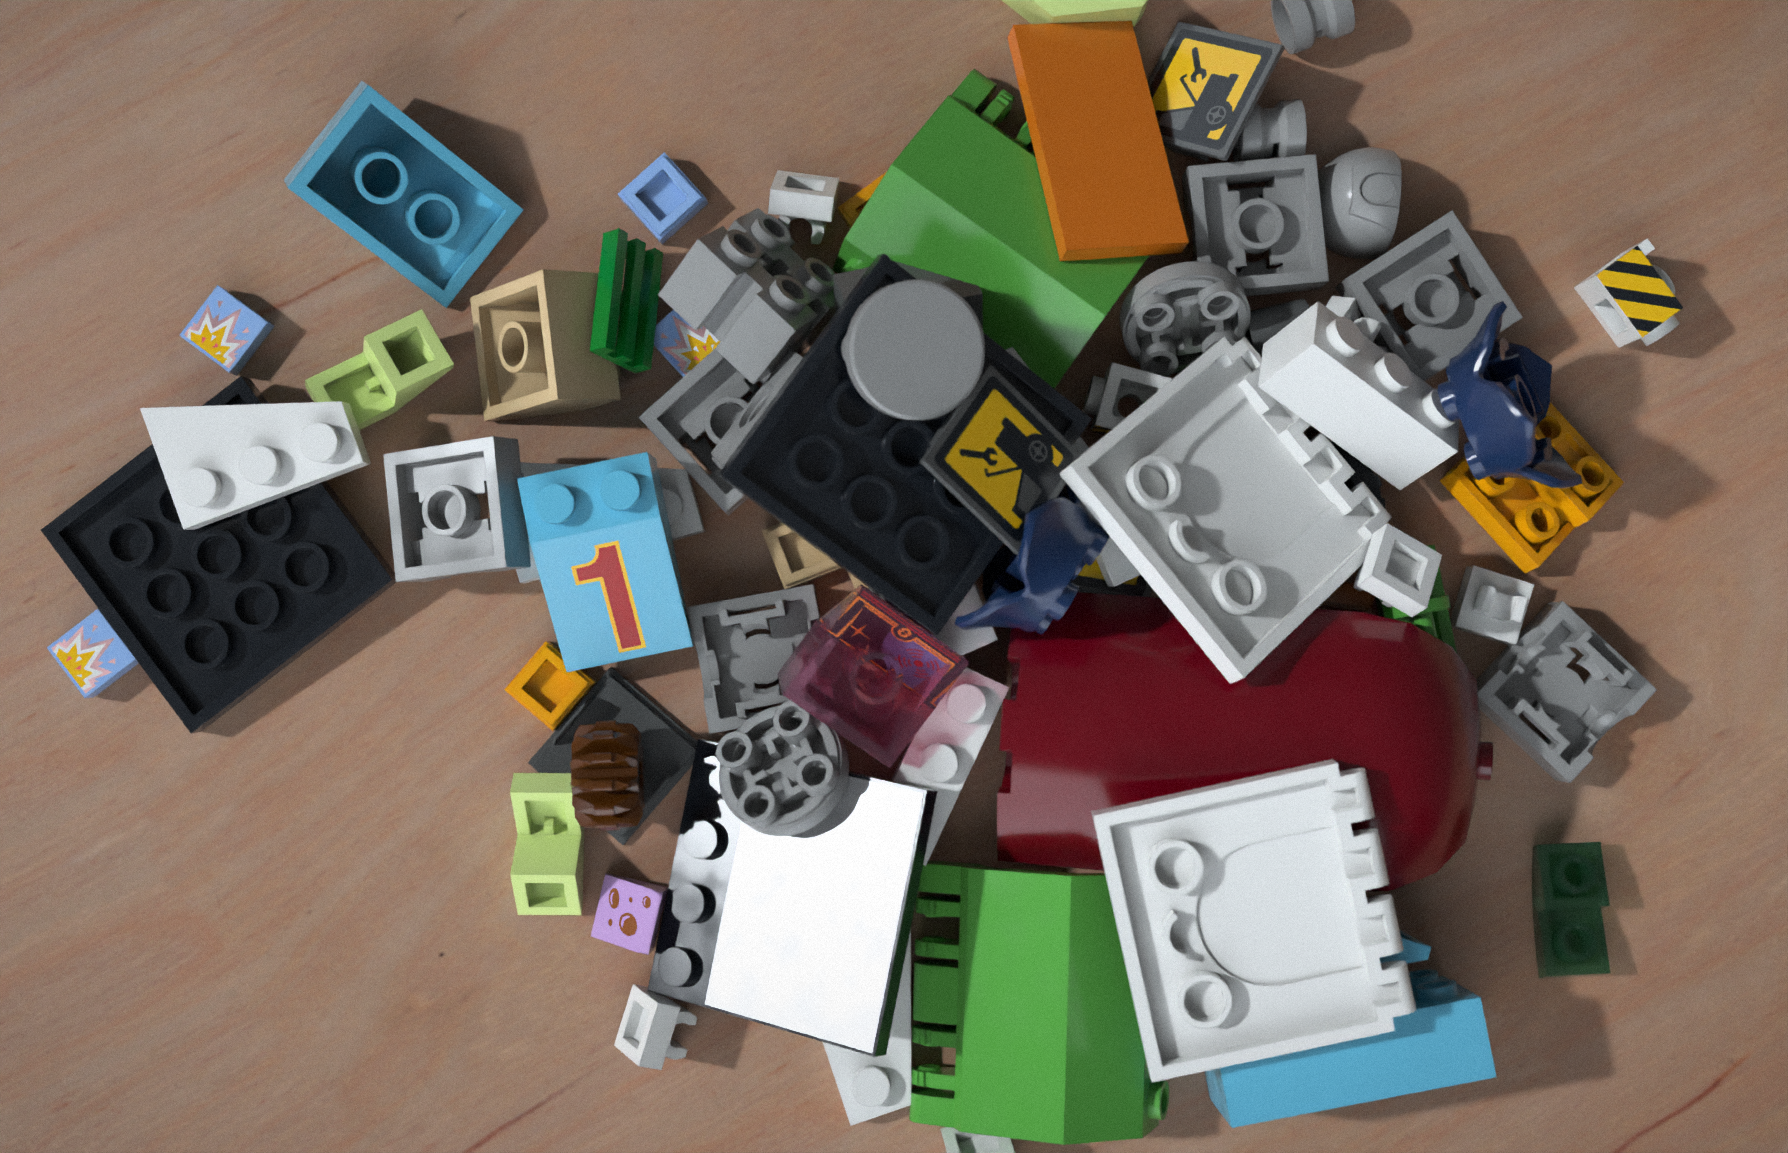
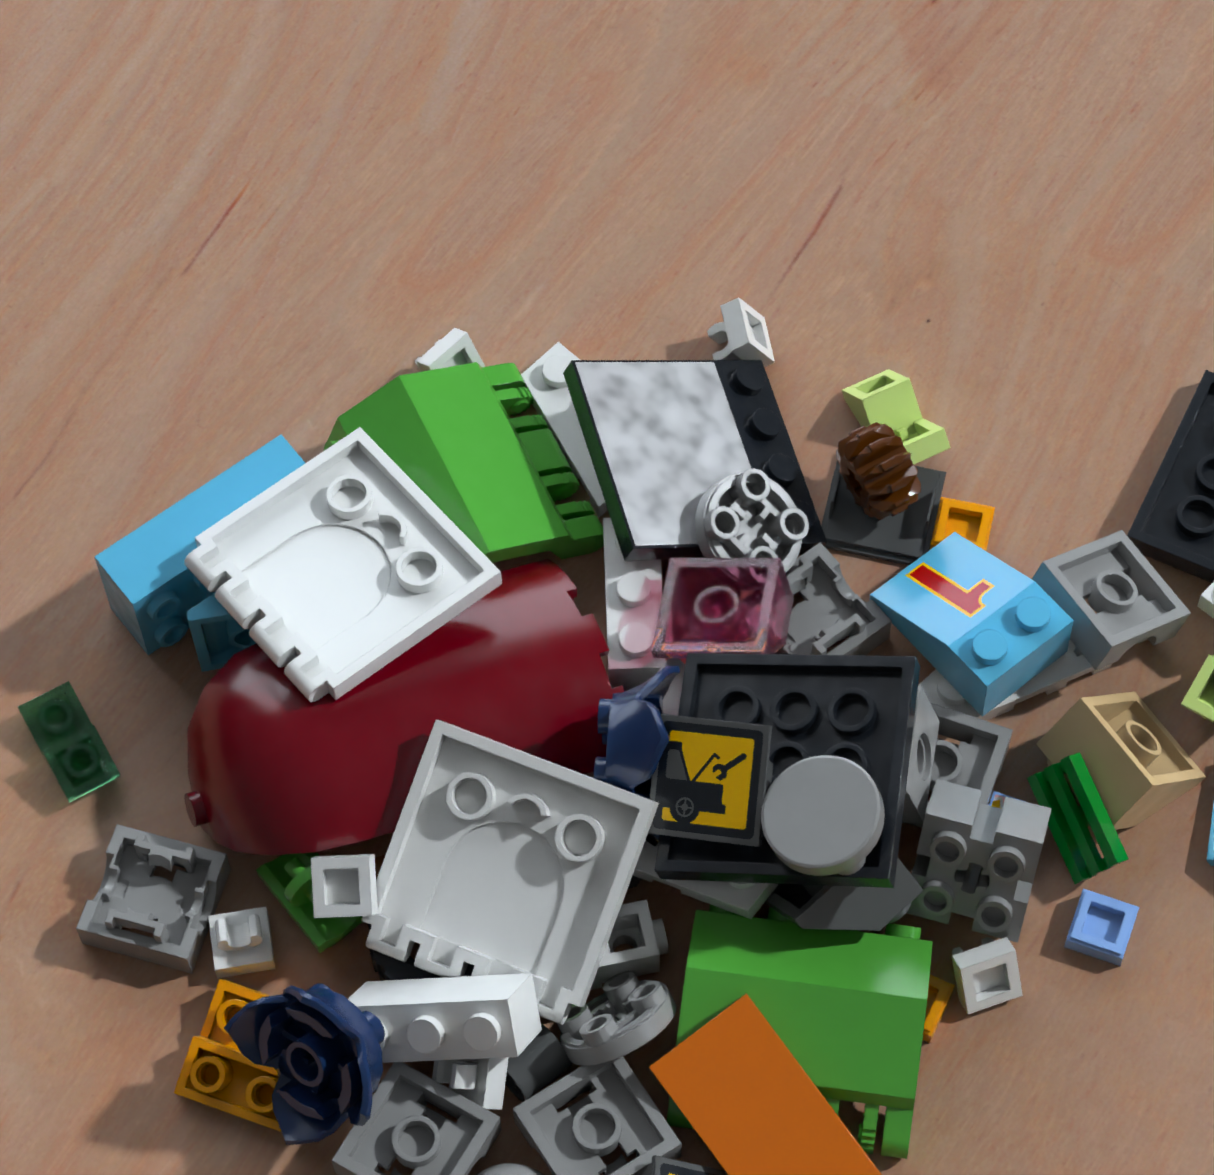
camera: 160 degrees right, 25 degrees down
(629, 913) = (805, 405): lavender slope -> none

